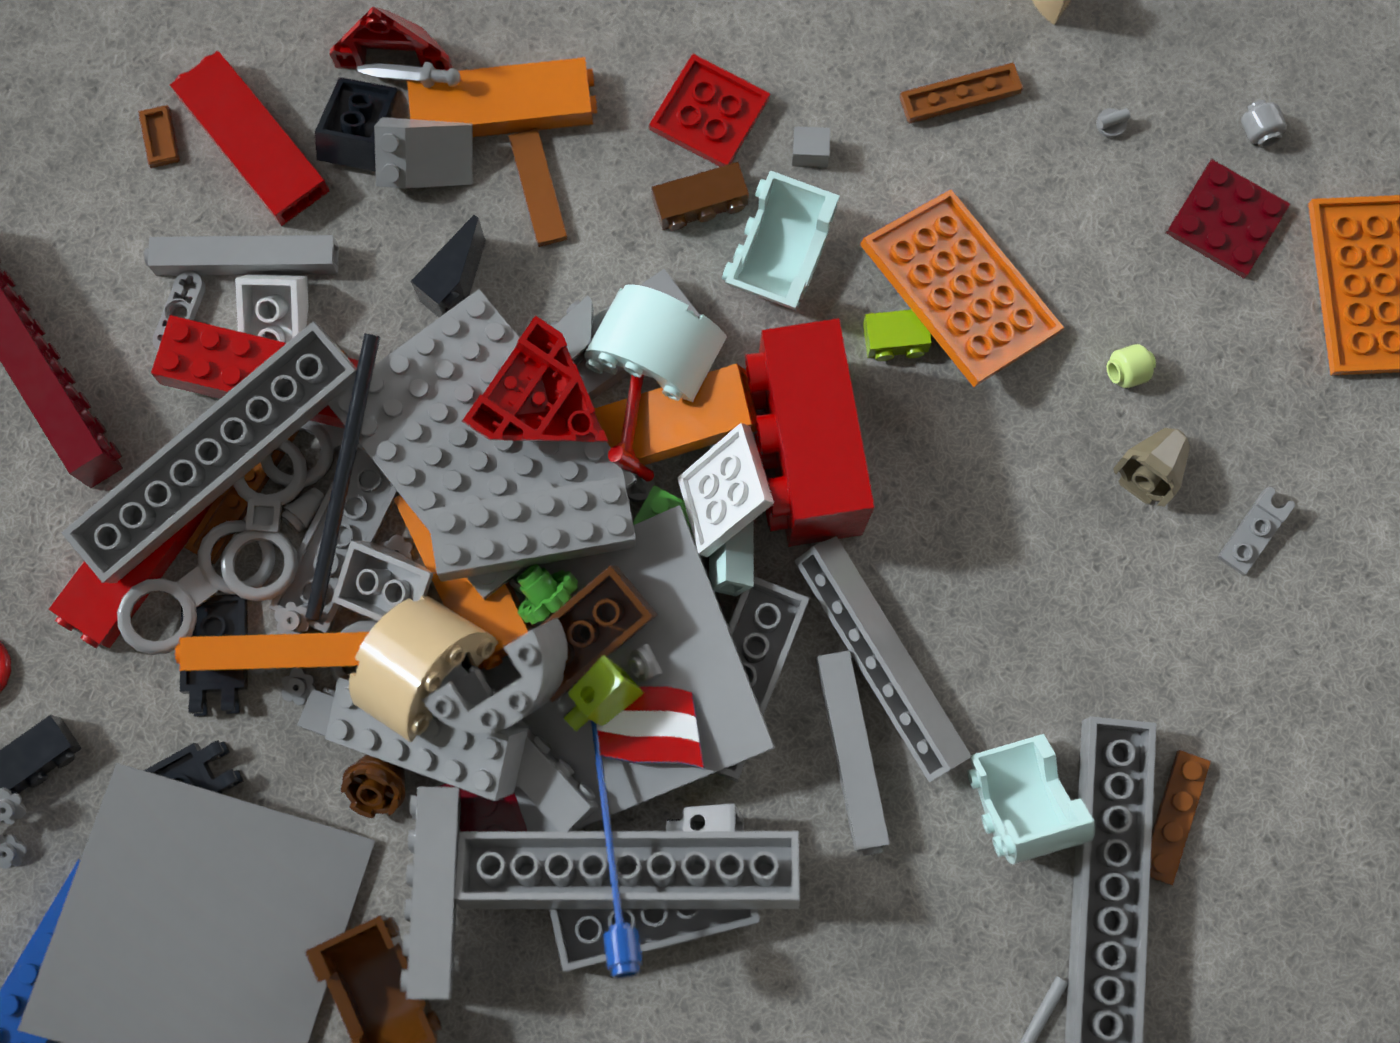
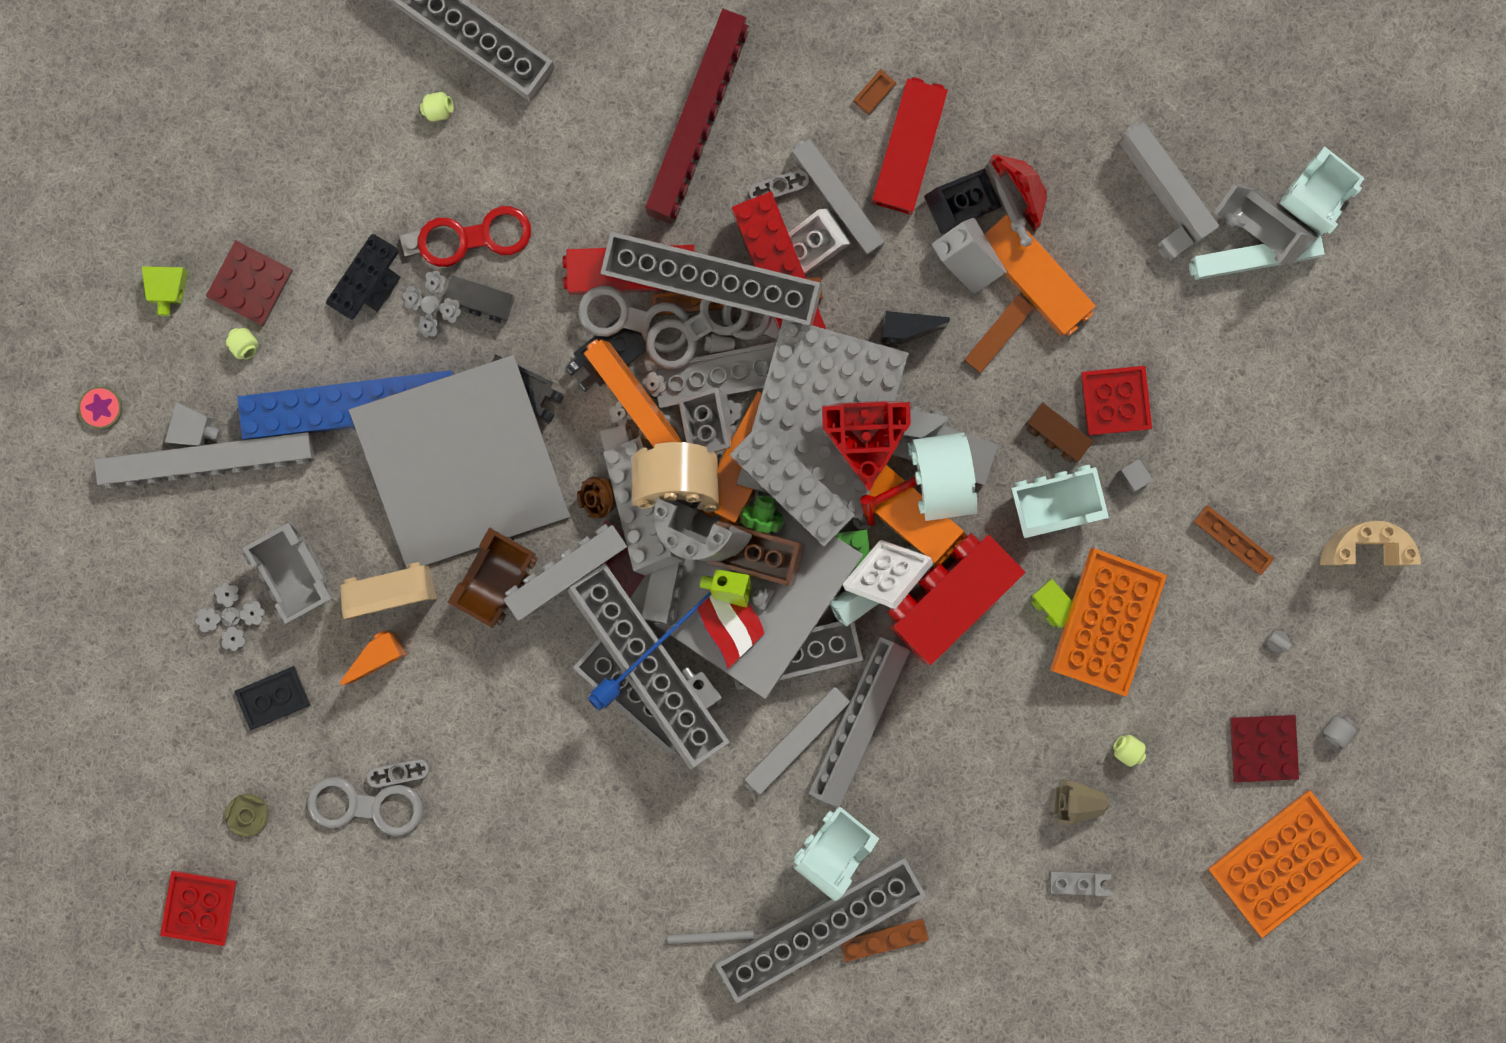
camera: 50 degrees right, 10 degrees up
(342, 476) = (749, 358): black piece -> none

